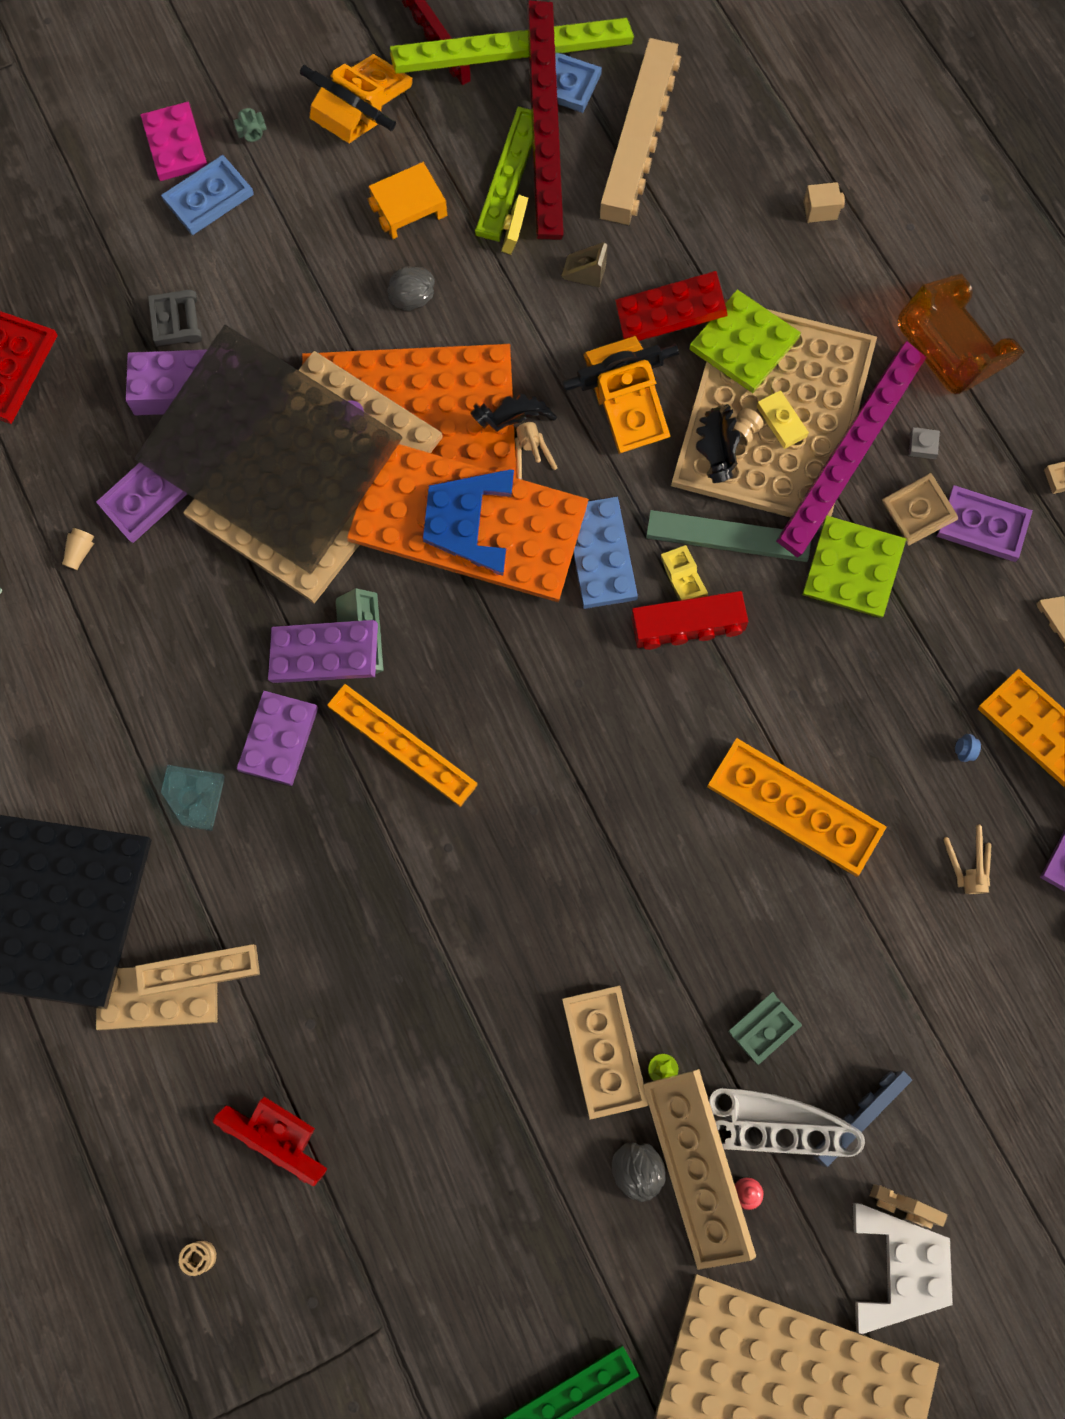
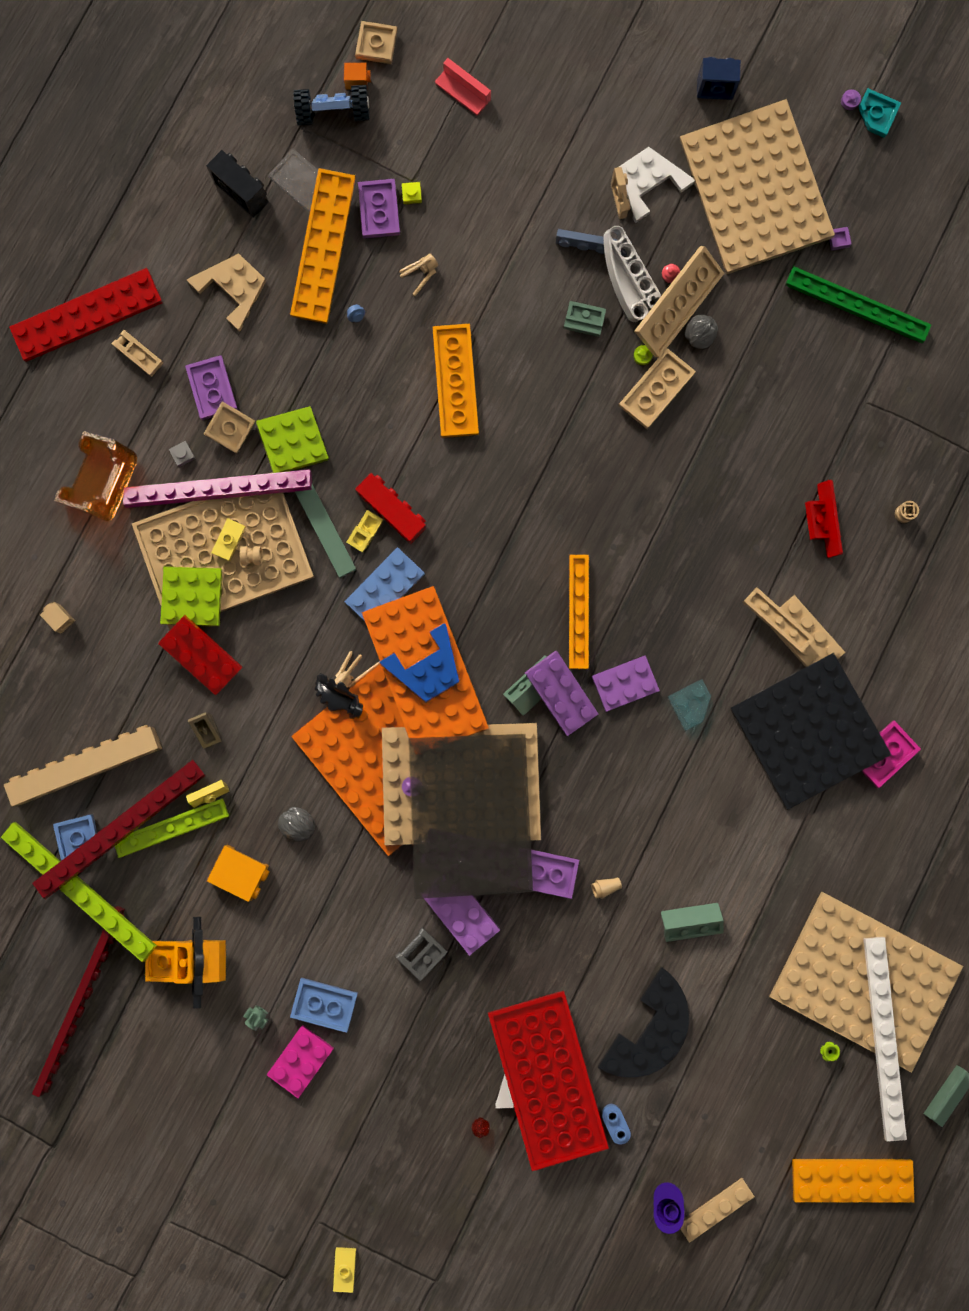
camera: 130 degrees left, 10 degrees up
(627, 390) = (274, 642): light orange piece -> none
(719, 442) = (272, 563): black plant -> none

